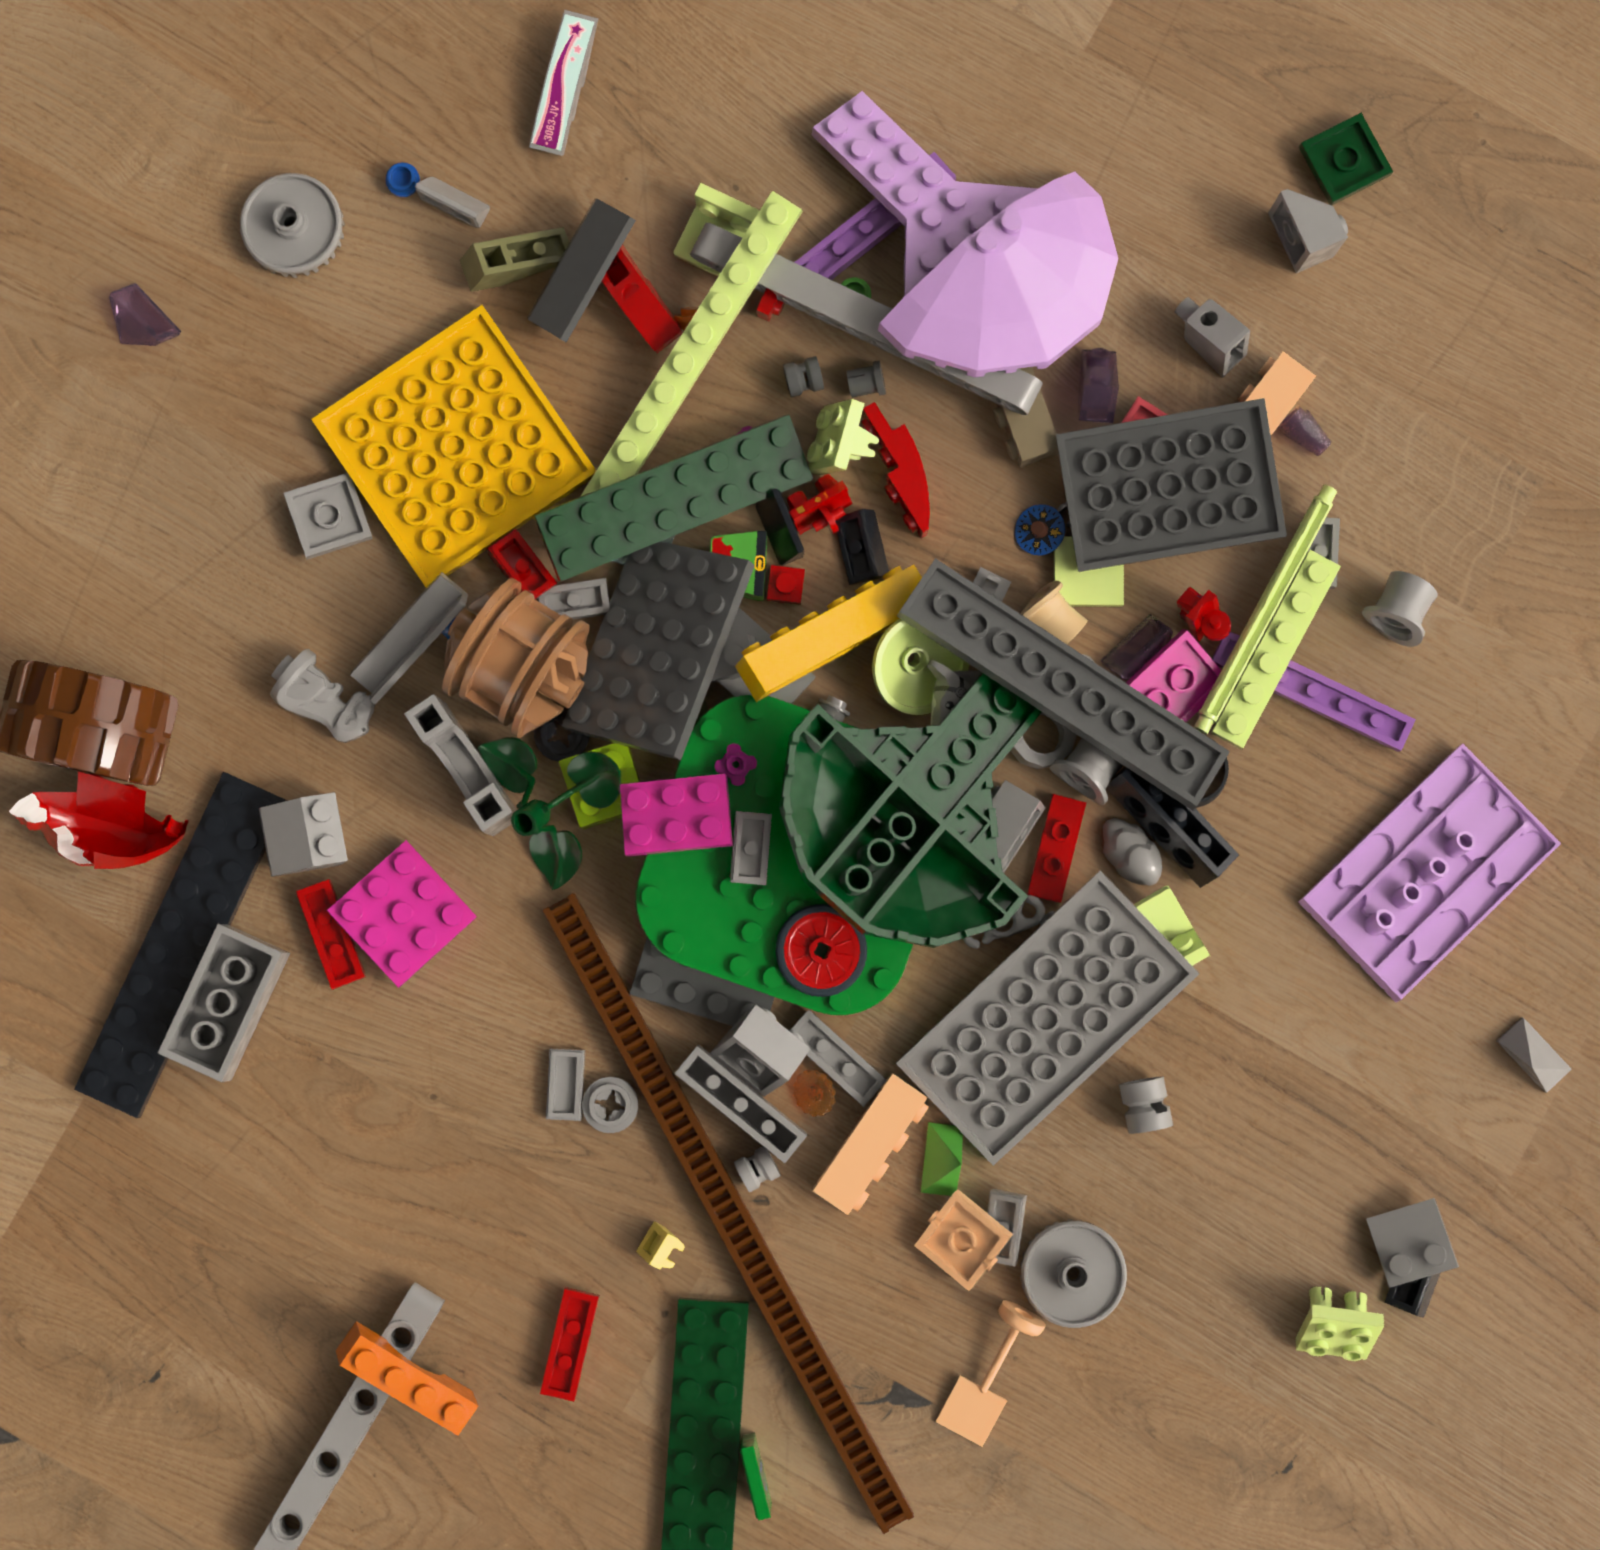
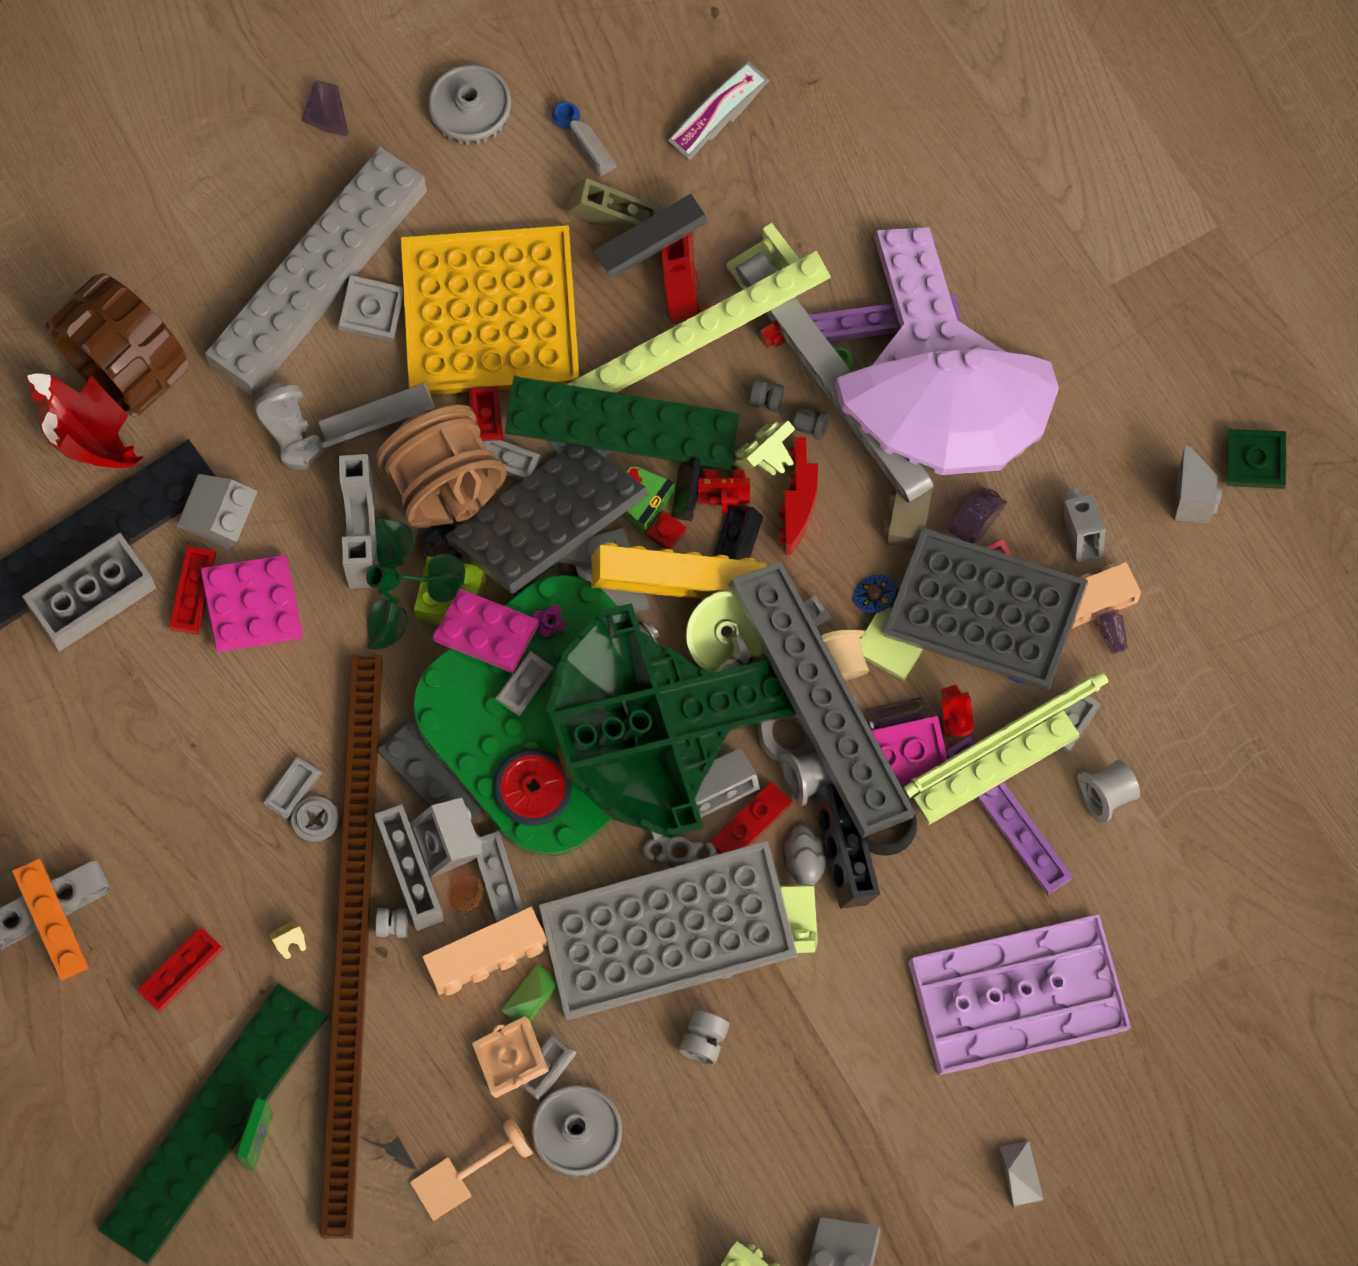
camera: 30 degrees right, 15 degrees down
(244, 508) = (316, 272): none -> light grey brick

